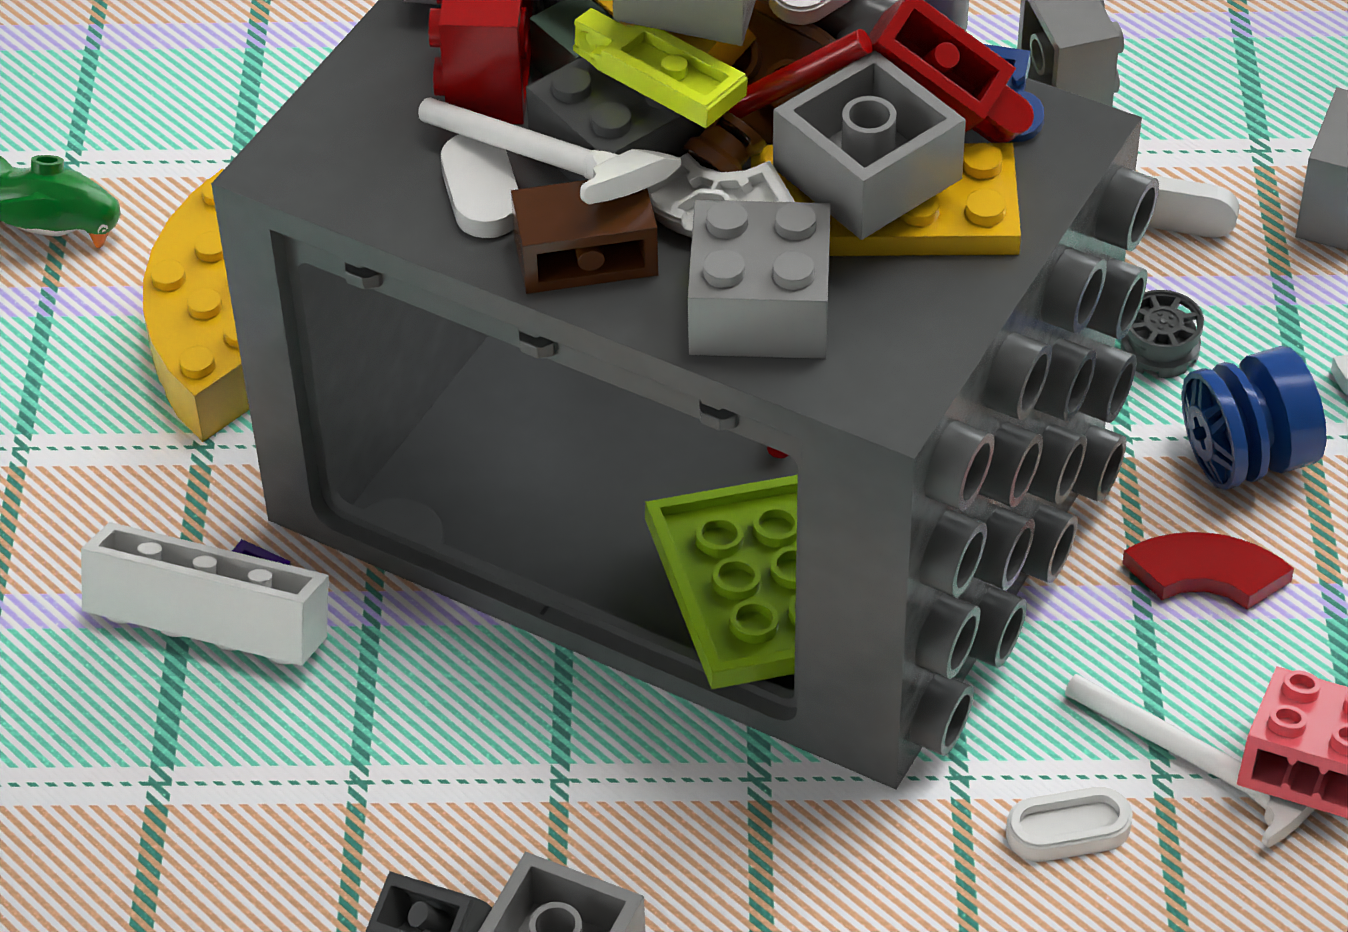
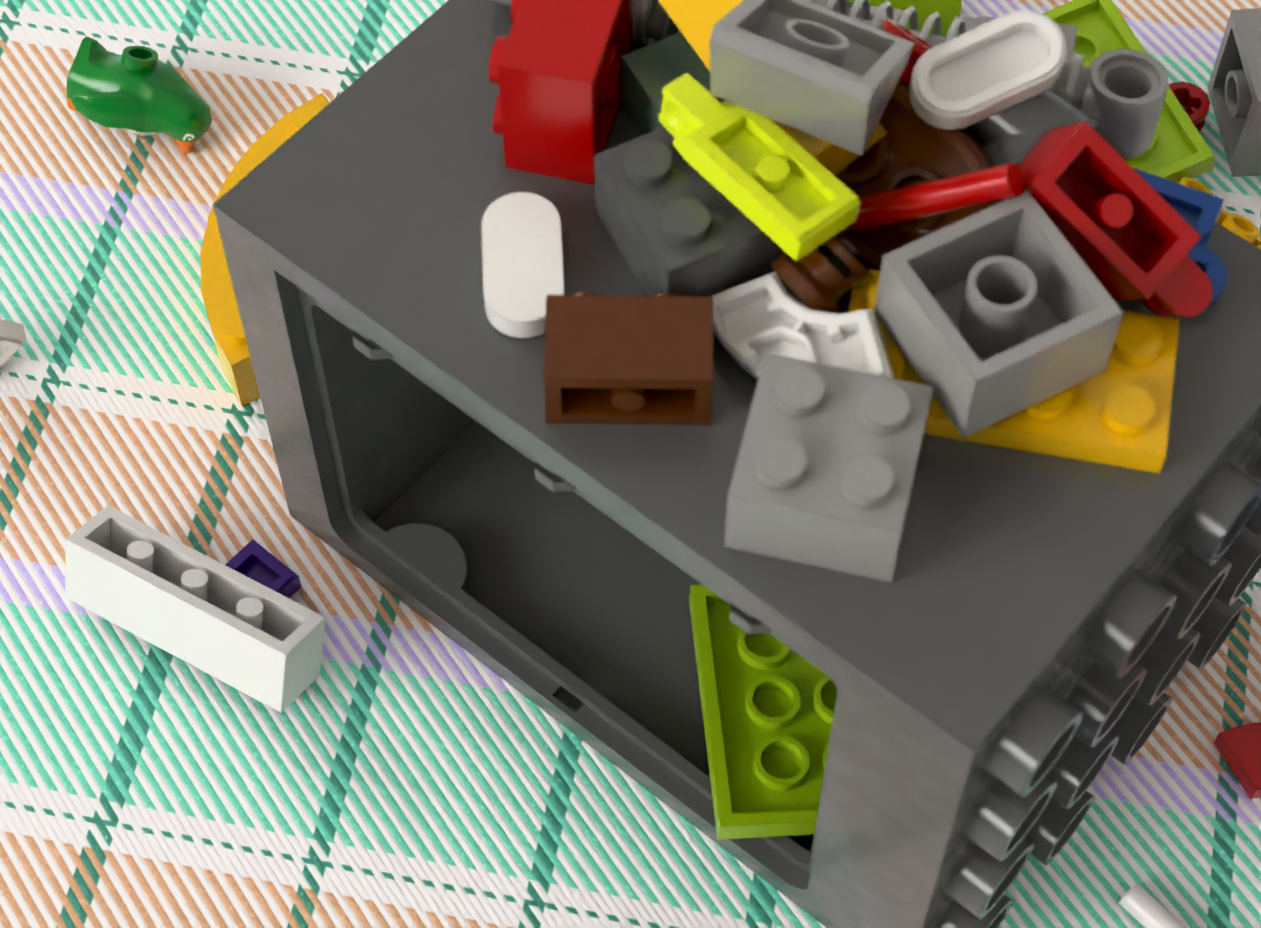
camera: 10 degrees right, 10 degrees up
(607, 172) = (672, 301): white piece -> none

